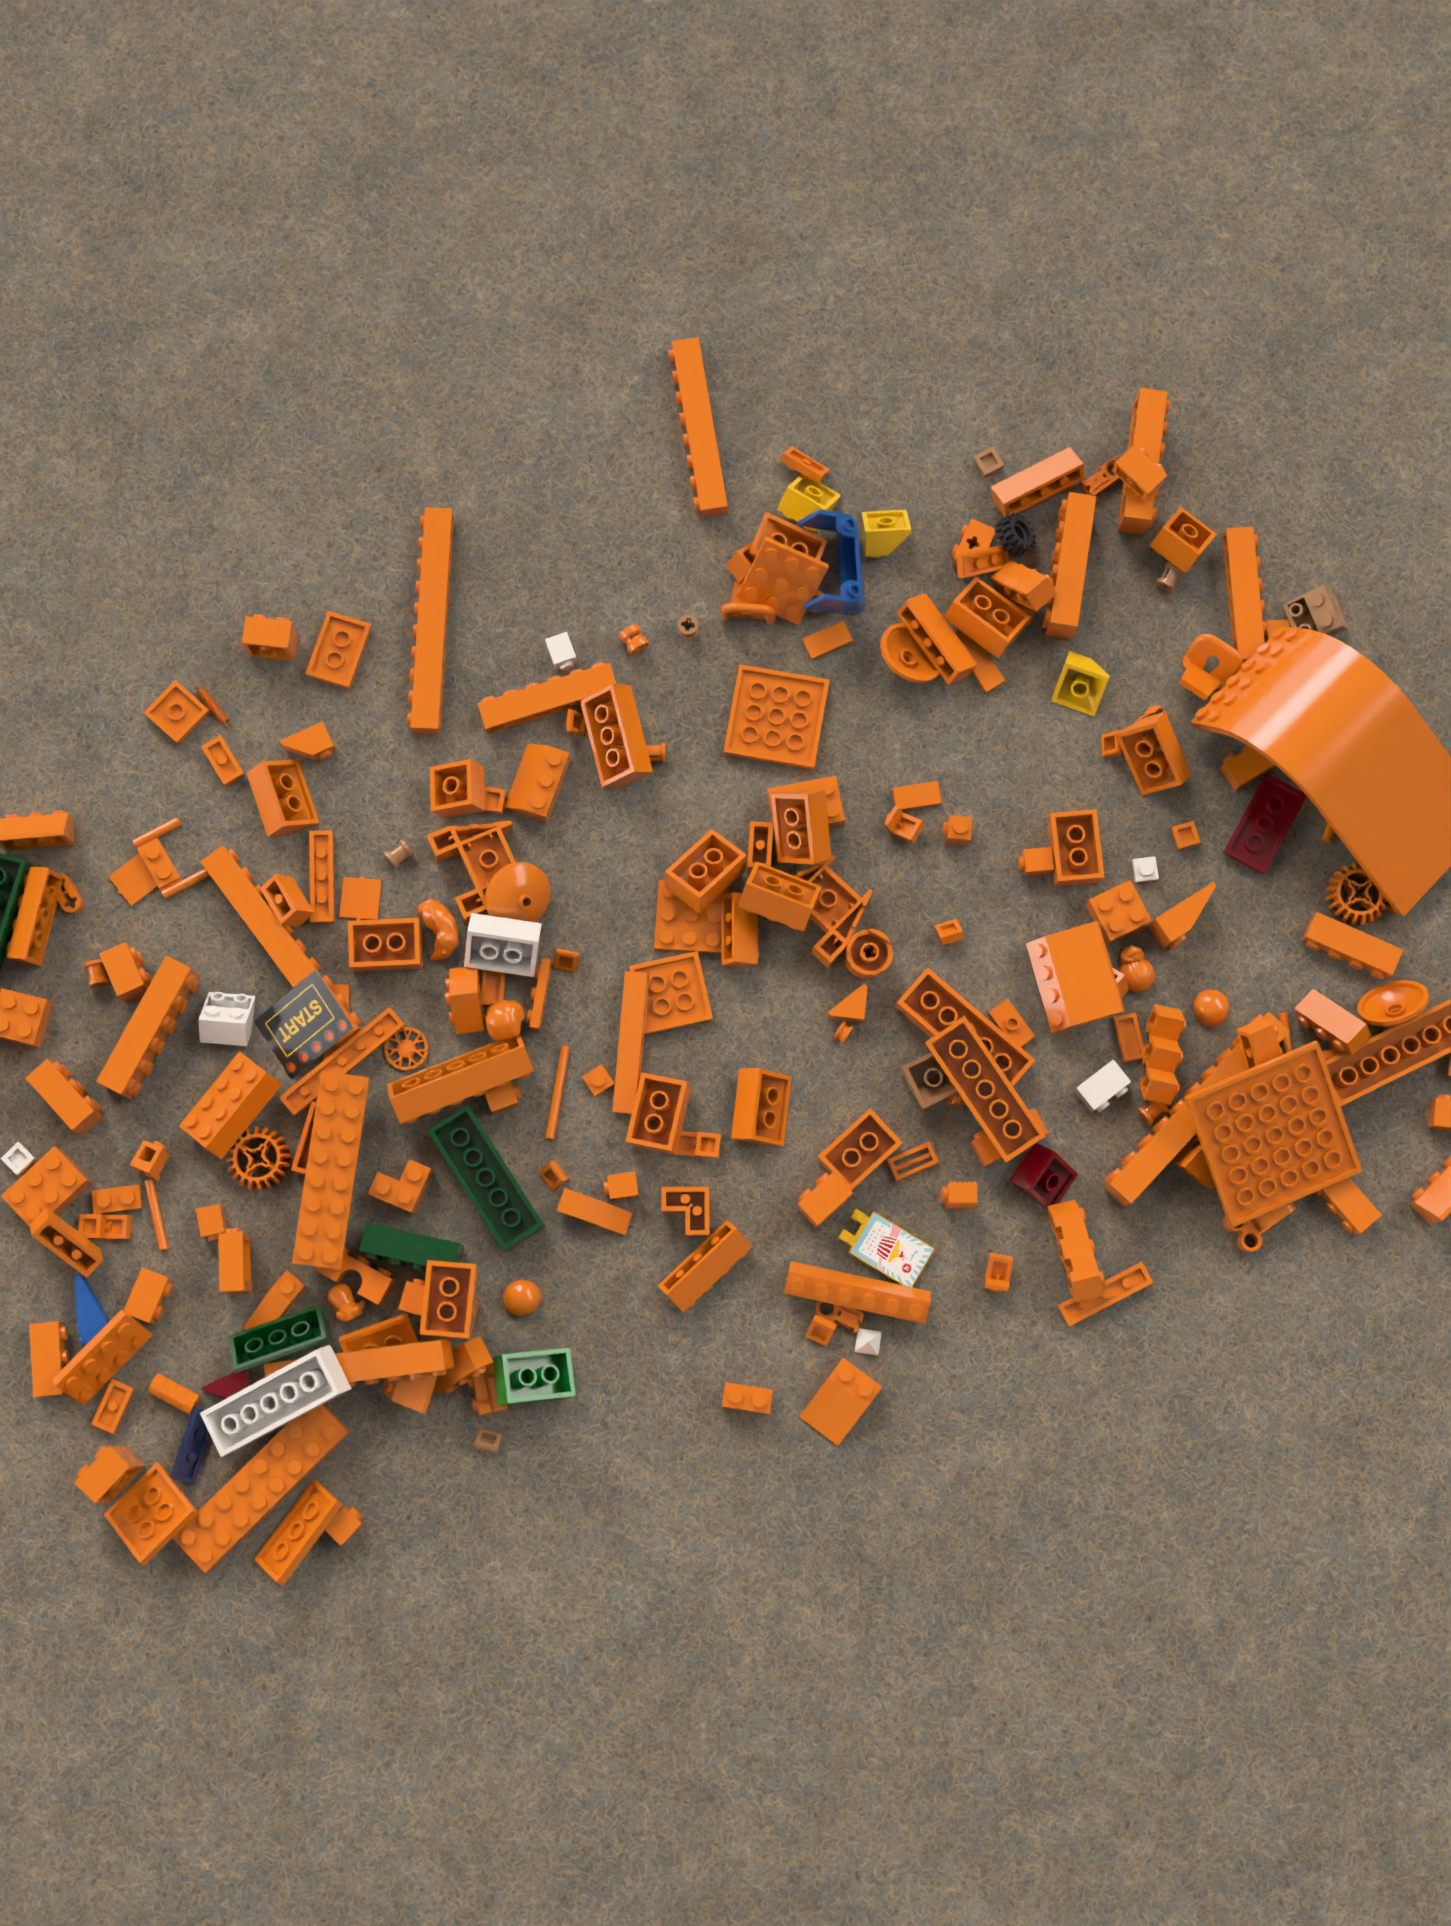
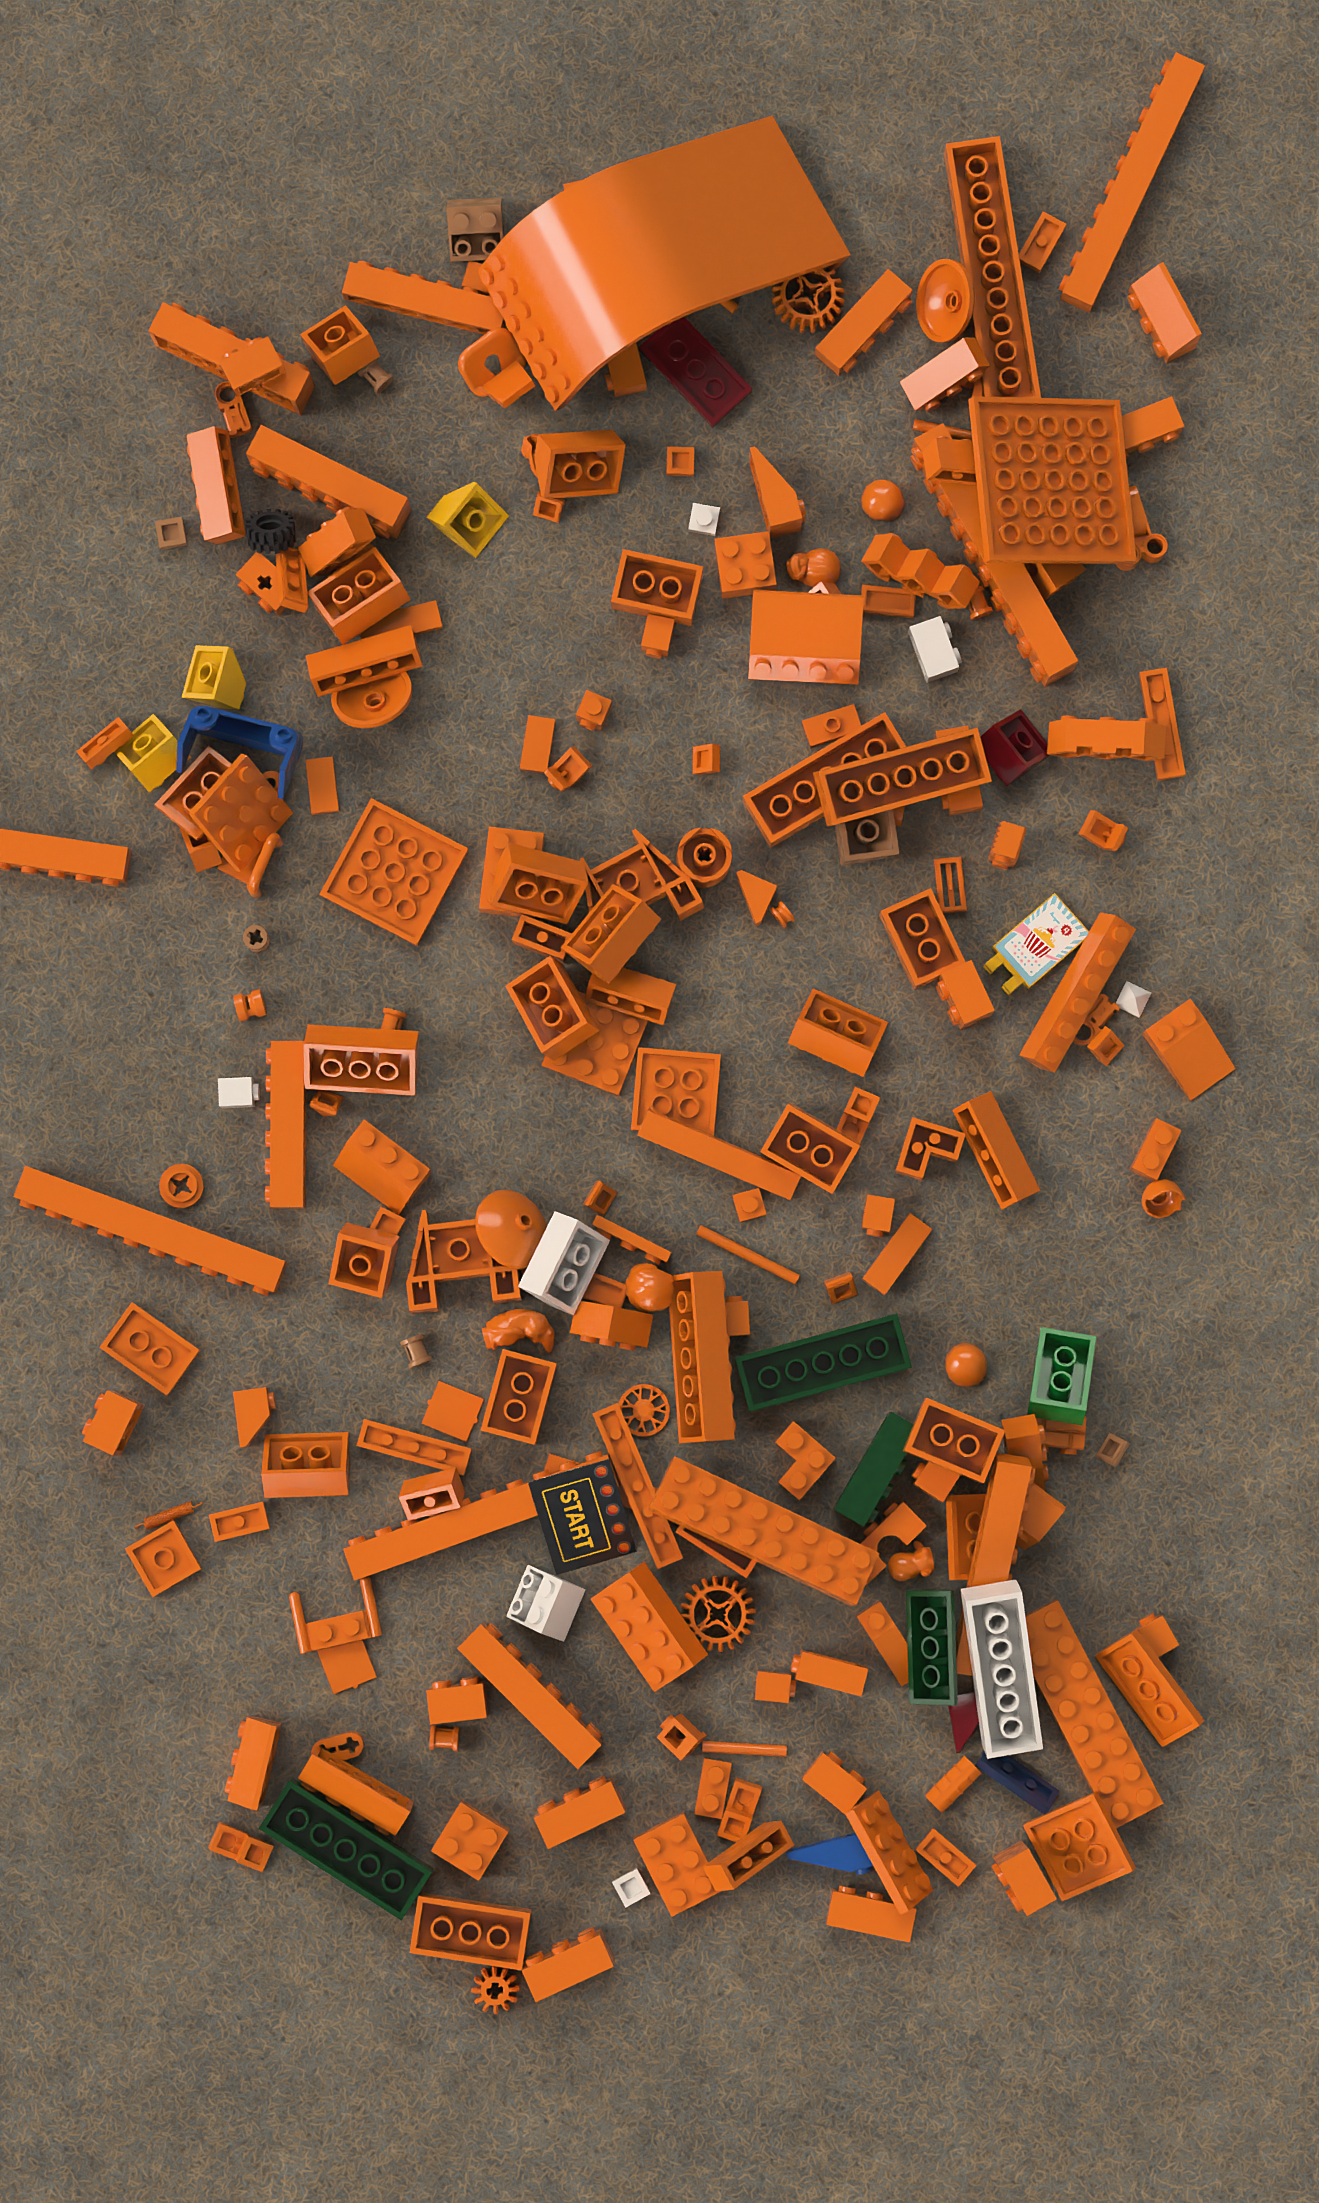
camera: 65 degrees left, 5 degrees up
(470, 624) = (168, 1187): none -> orange gear
(708, 1416) = (1162, 1198): none -> orange hair

